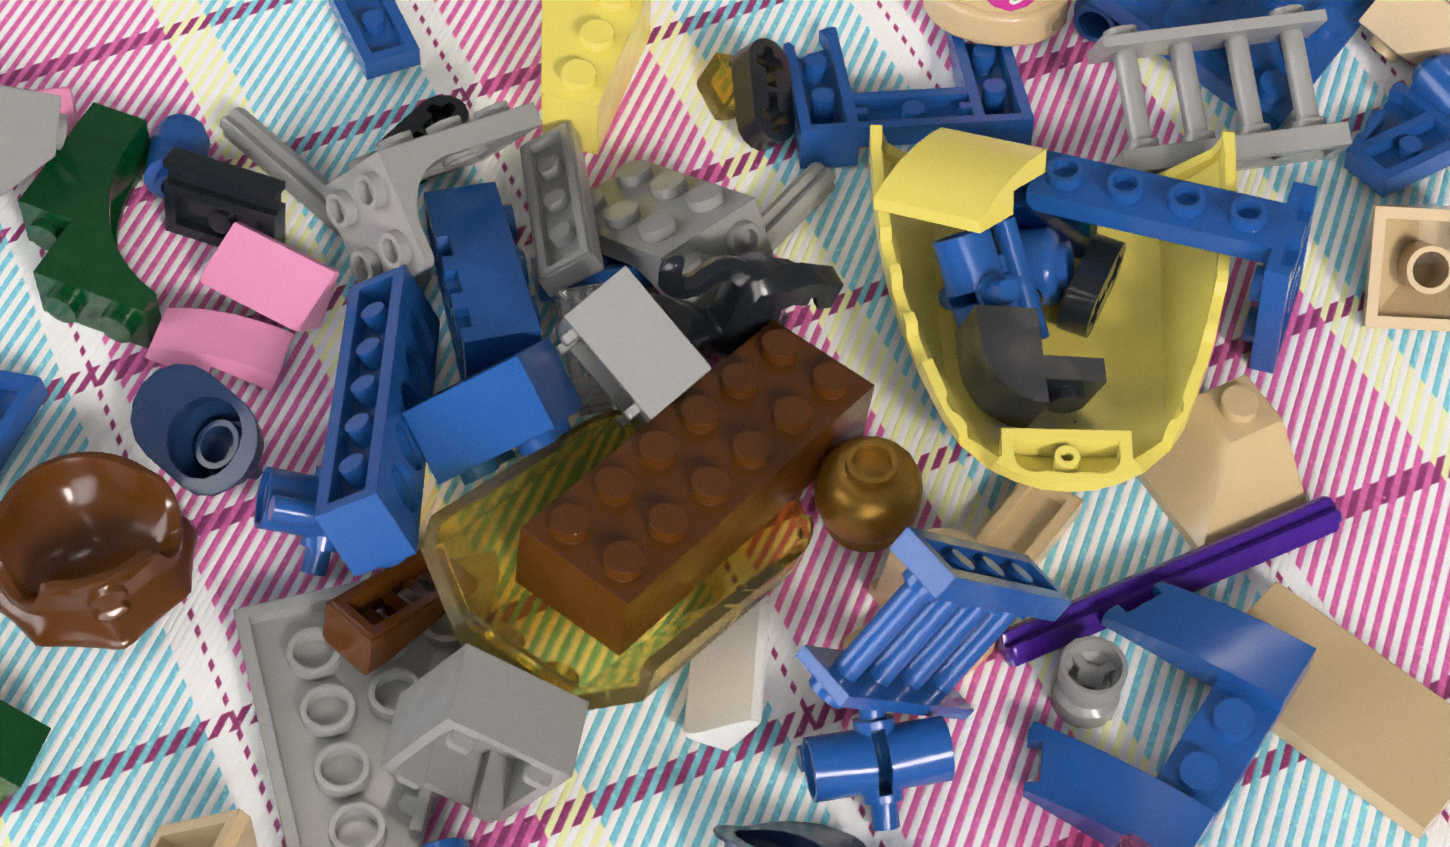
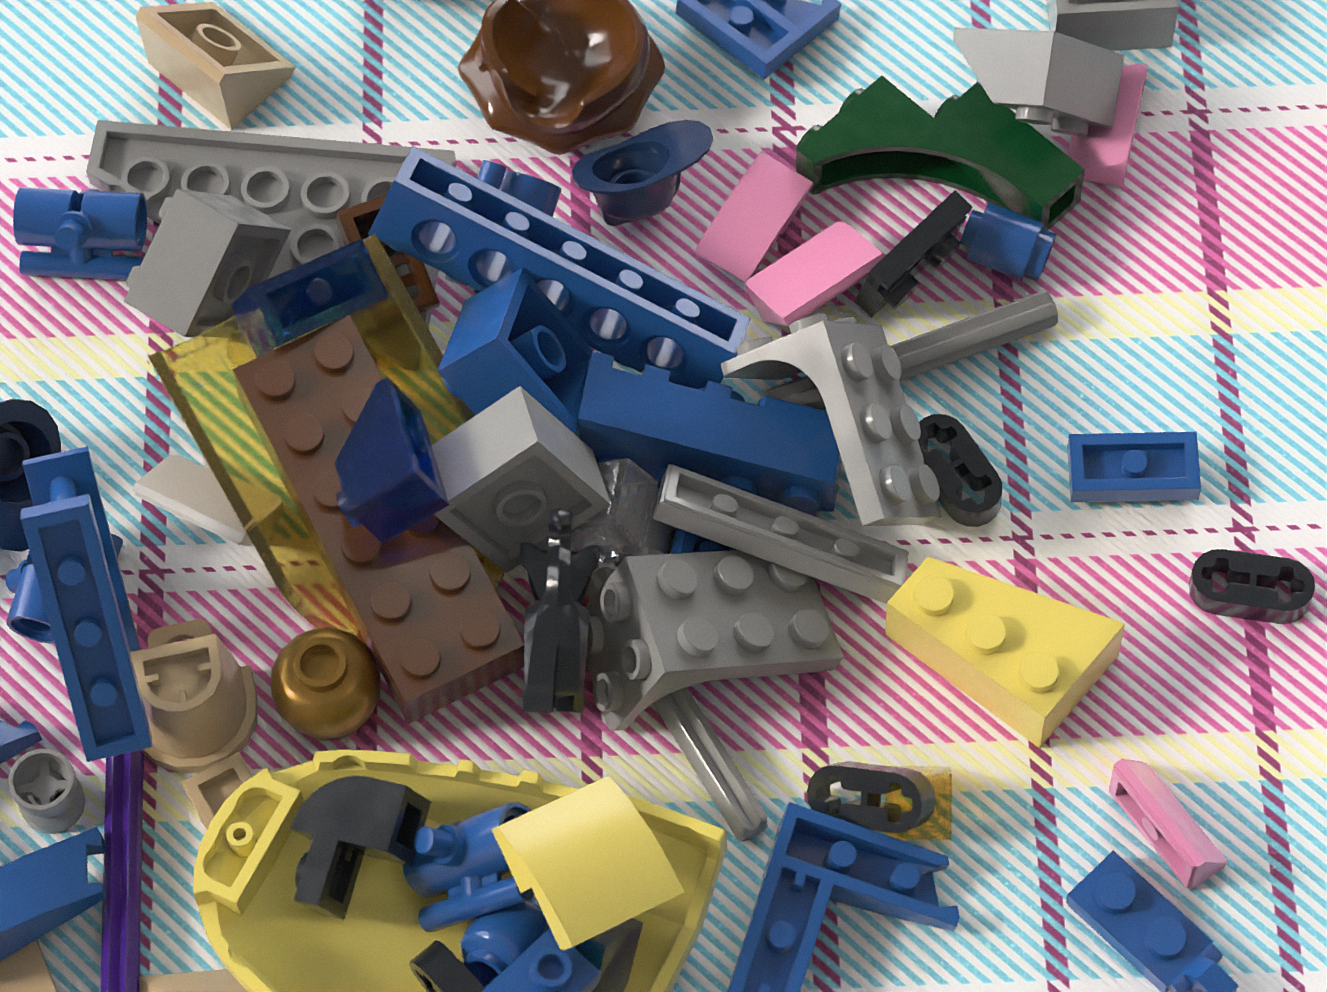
camera: 120 degrees right, 10 degrees up
(518, 582) = (309, 297): none -> clear blue slope
(688, 404) = (389, 466): none -> clear blue slope

